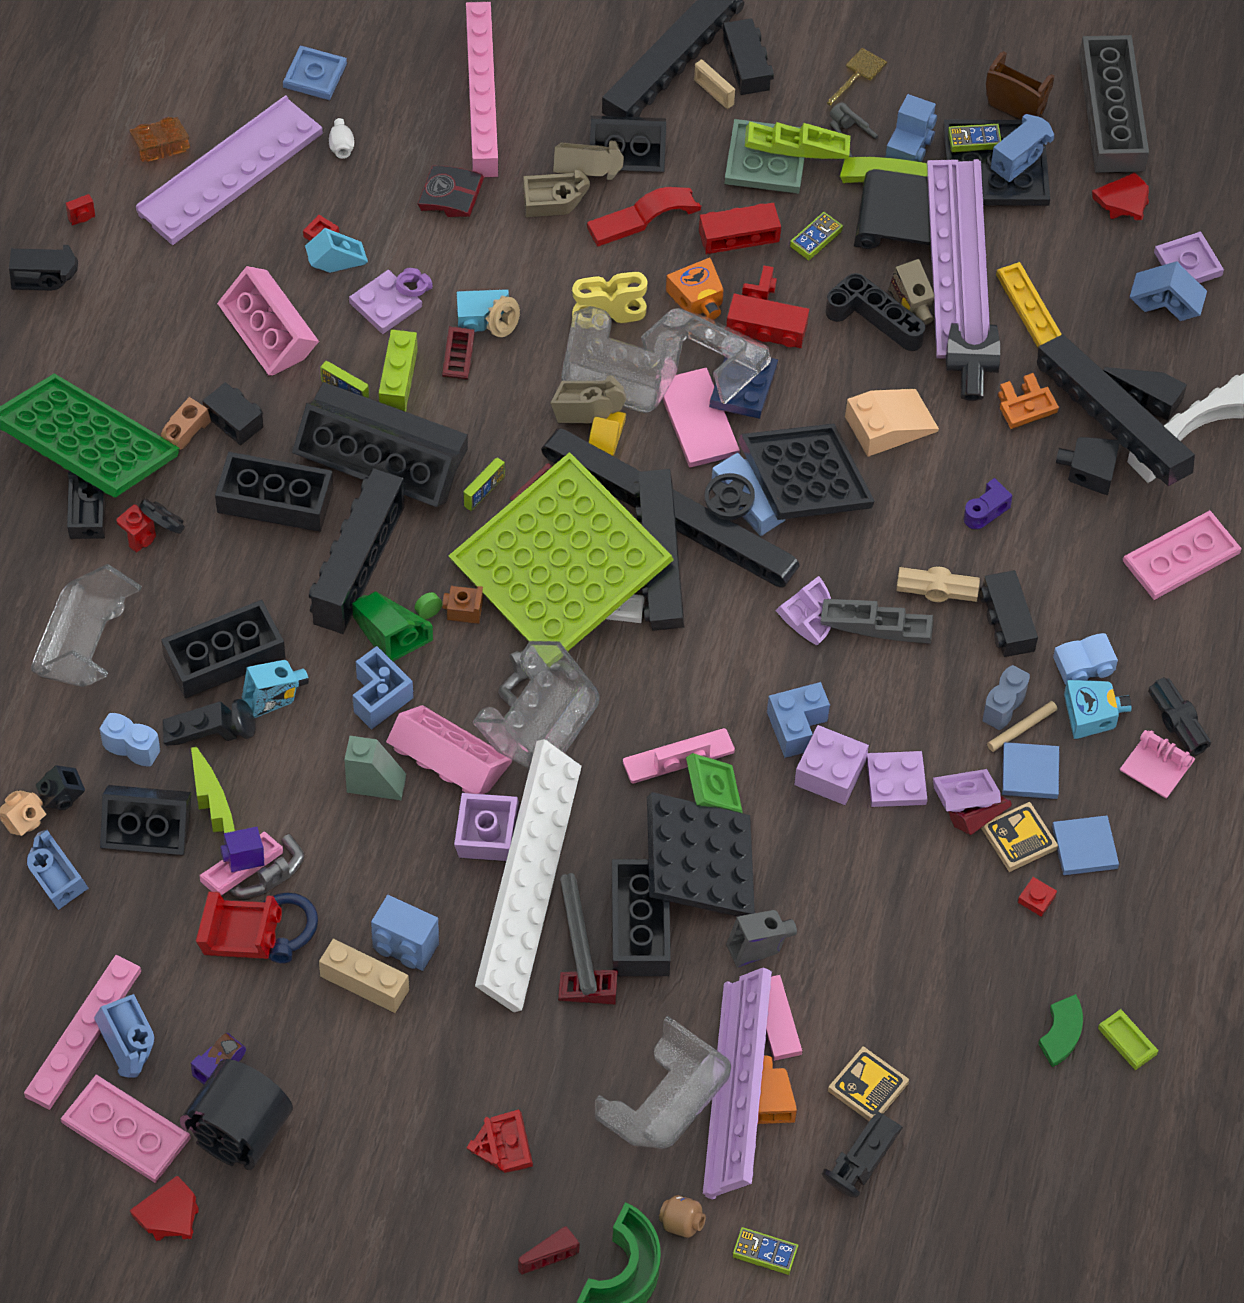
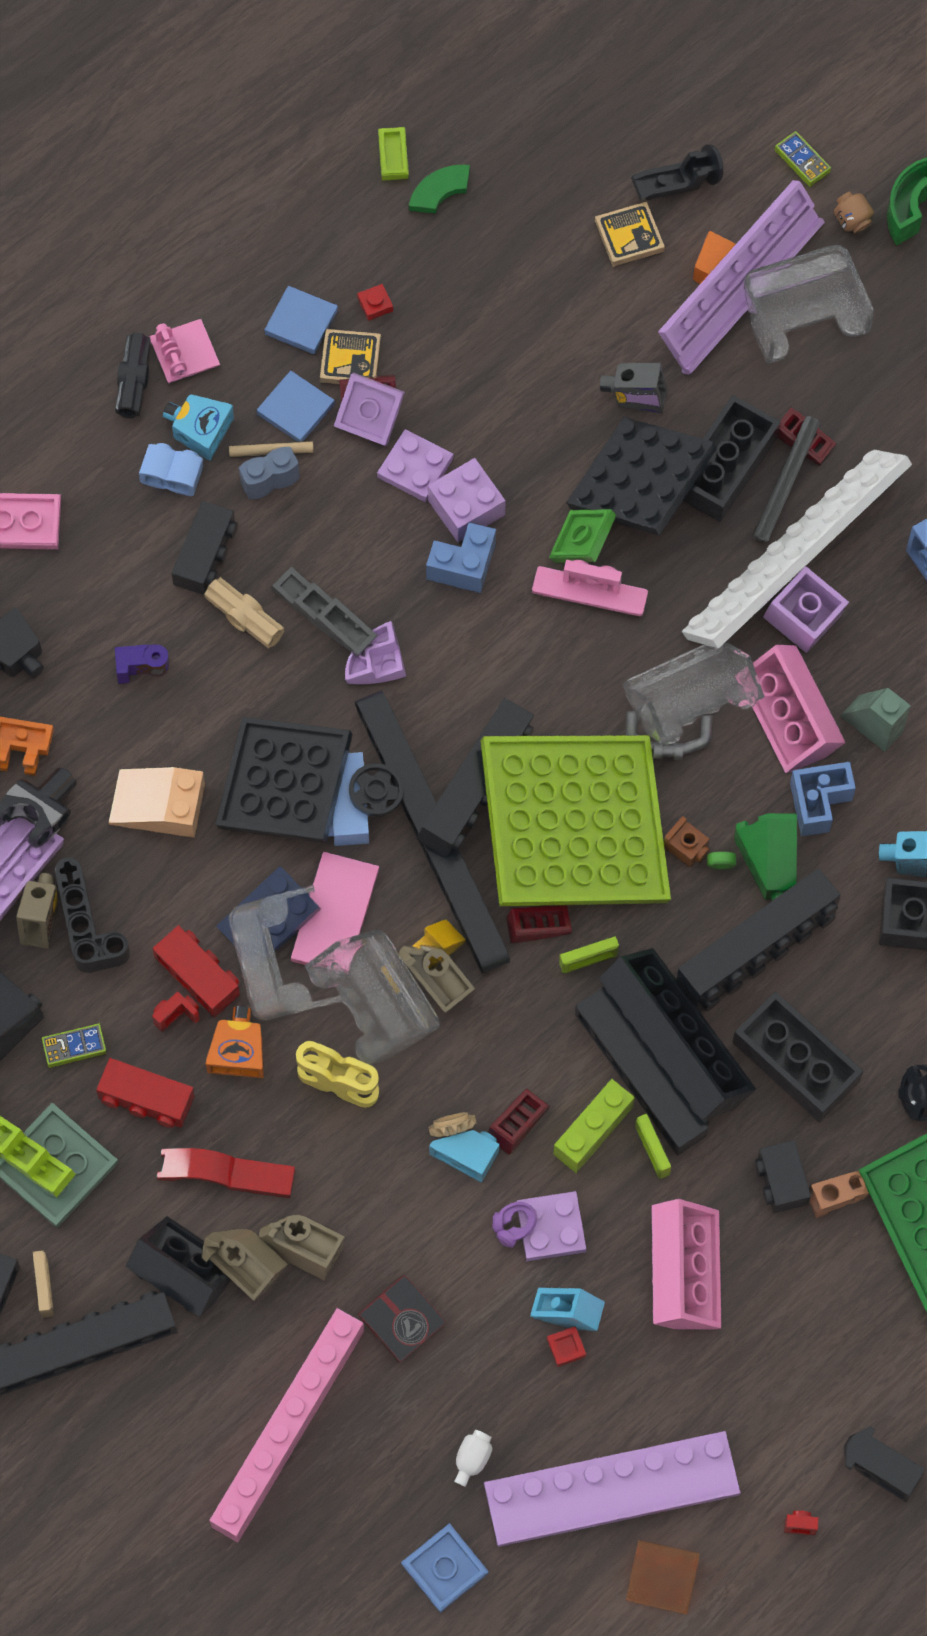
camera: 145 degrees left, 10 degrees up
(780, 1024) = (654, 348): bright pink tile -> none

